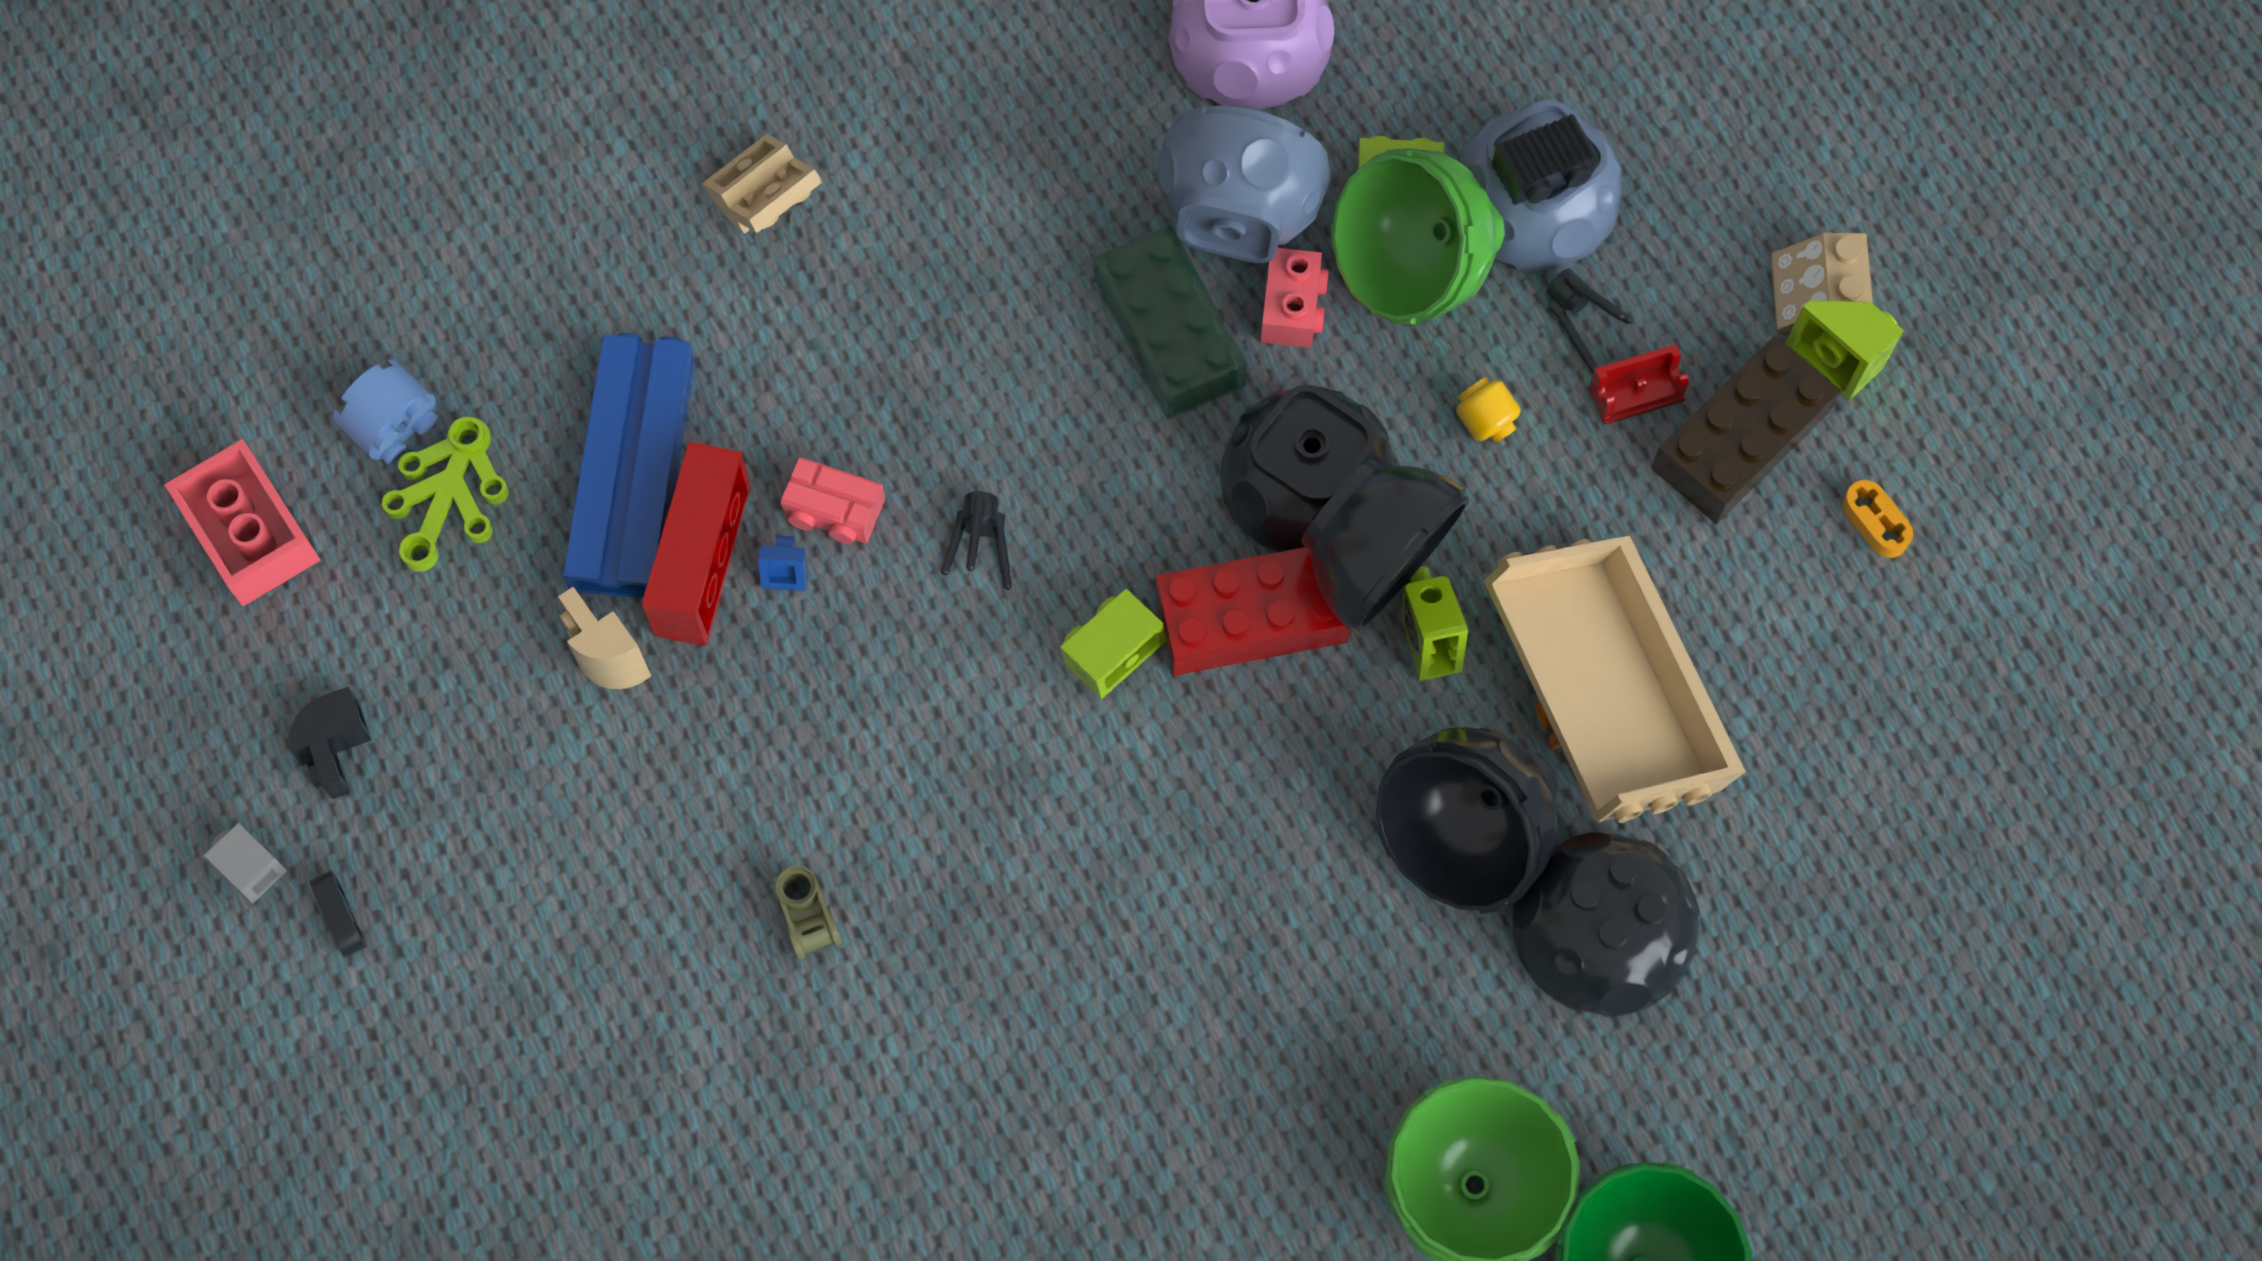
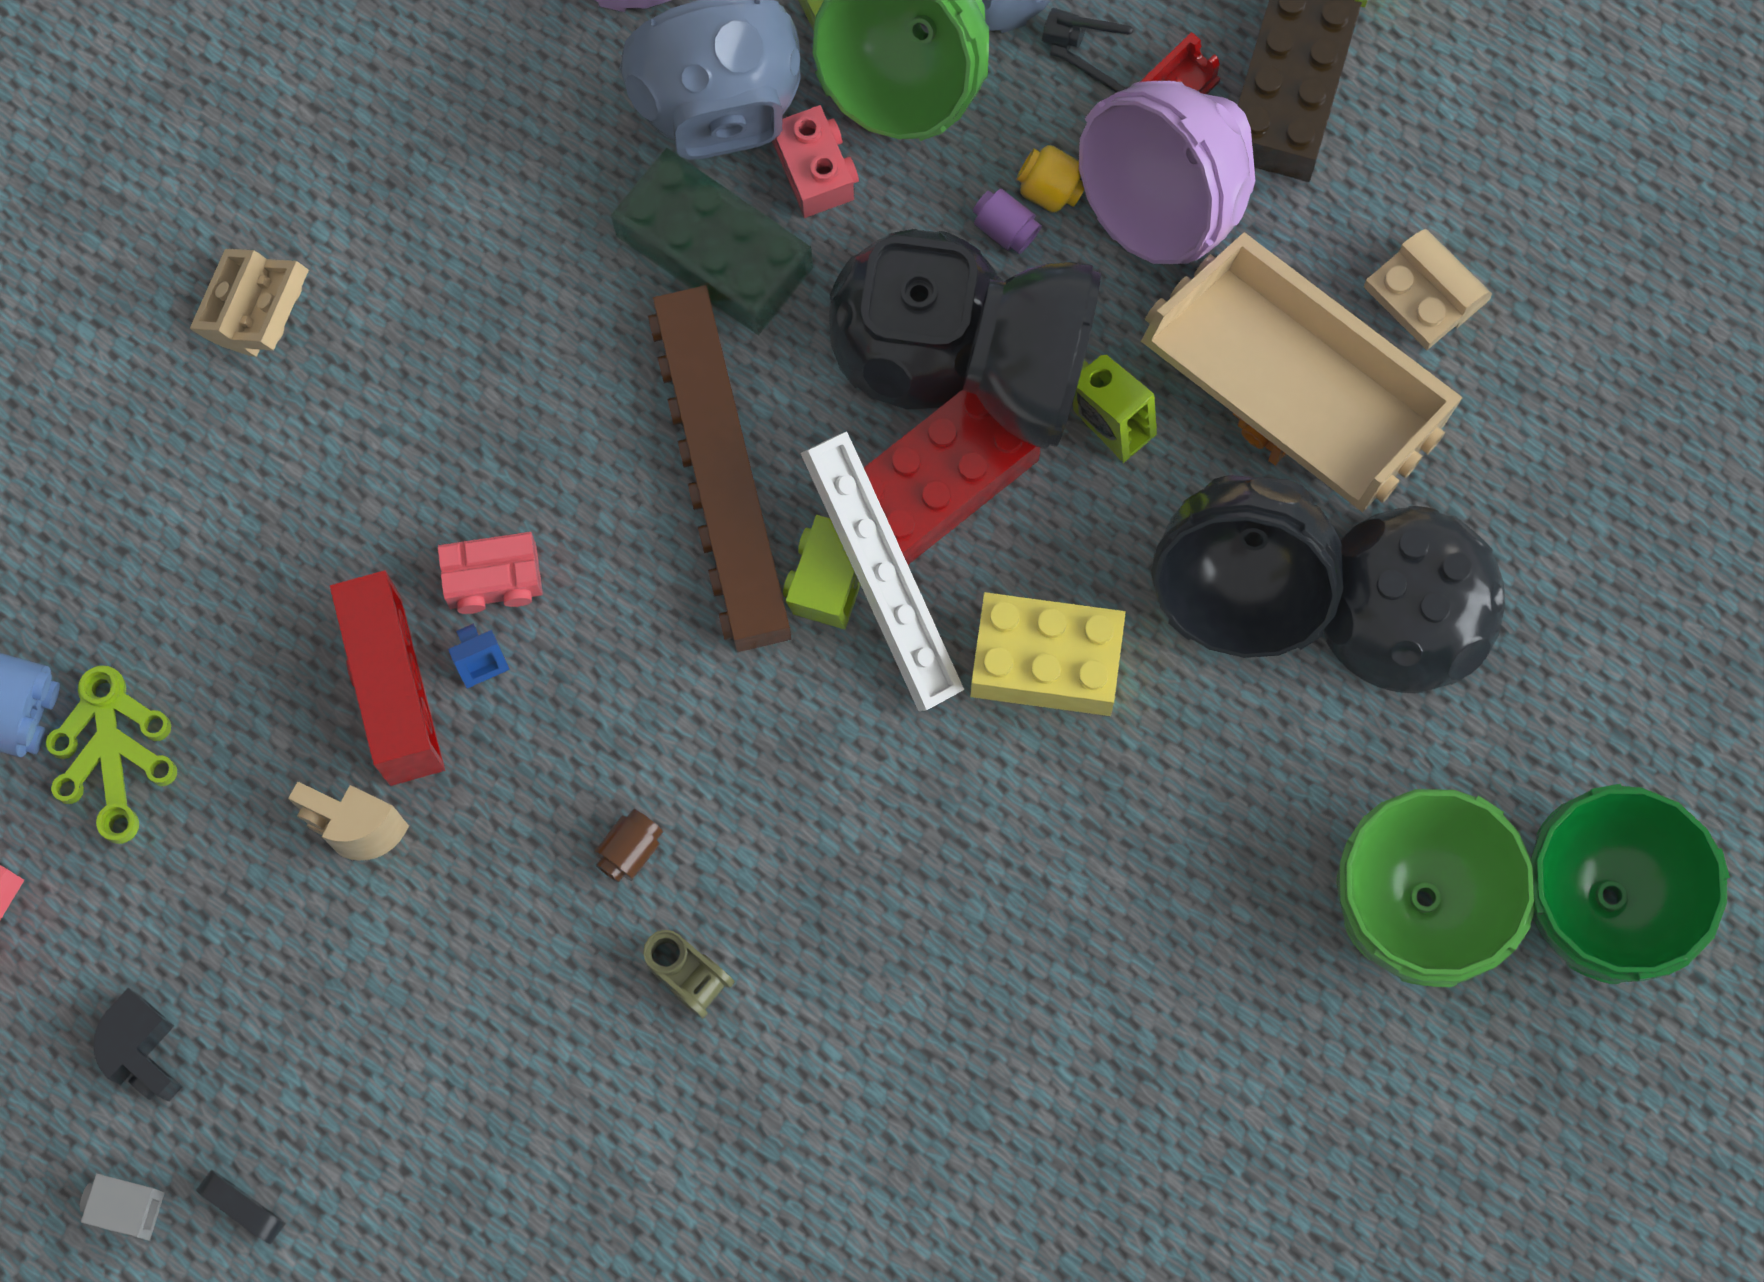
camera: 25 degrees left, 5 degrees up
(629, 463) = (276, 636): blue brick -> none
(817, 784) = (628, 846): none -> reddish brown brick
(978, 519) = (638, 517): black plant -> none
(1070, 514) = (721, 470): none -> reddish brown brick
(1153, 663) = (882, 571): none -> white plate
(1260, 806) = (1047, 654): none -> light yellow brick
(1429, 427) = (1006, 220): none -> medium lavender brick
(1587, 447) = (1167, 169): none -> lavender rock
(1768, 664) = (1427, 289): none -> tan brick
(1875, 519) = (1449, 105): light orange beam -> none

